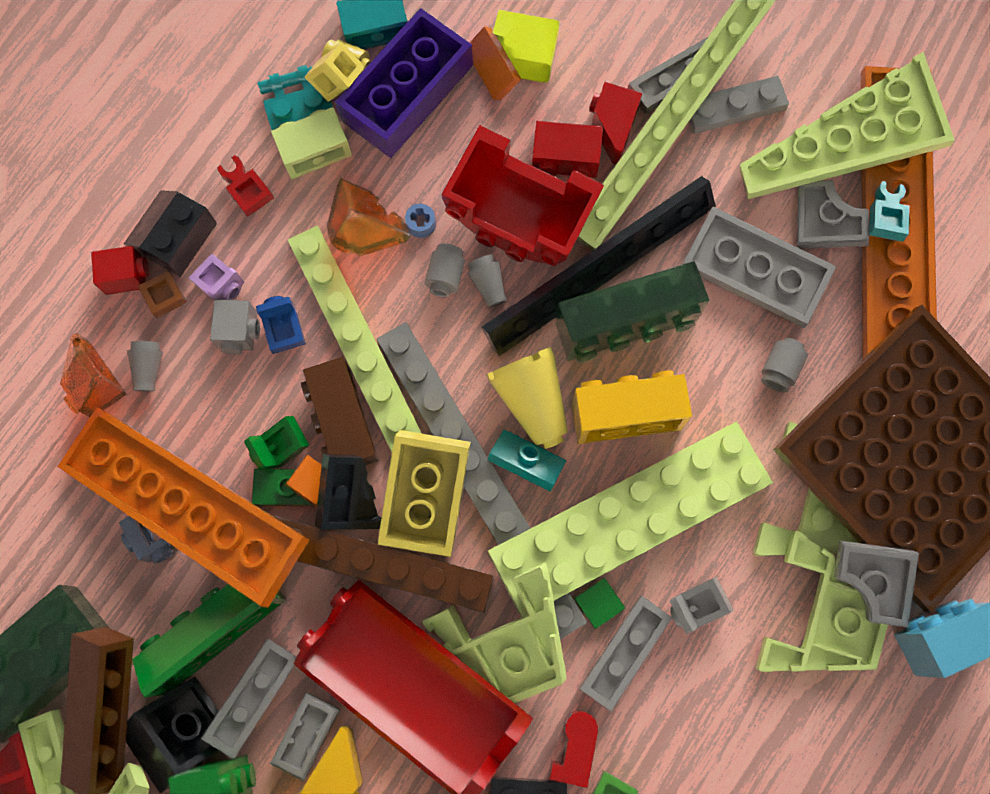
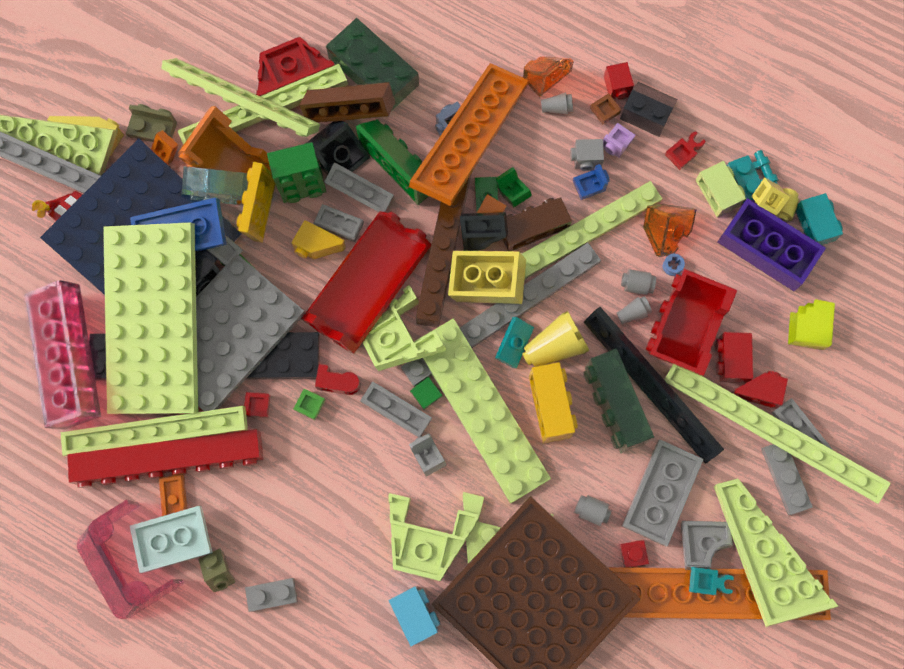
camera: 85 degrees right, 0 degrees up
(493, 64) = (794, 303): orange tile -> none
(843, 314) = (634, 554): none -> red plate
(882, 578) = (451, 567): light grey tile -> none

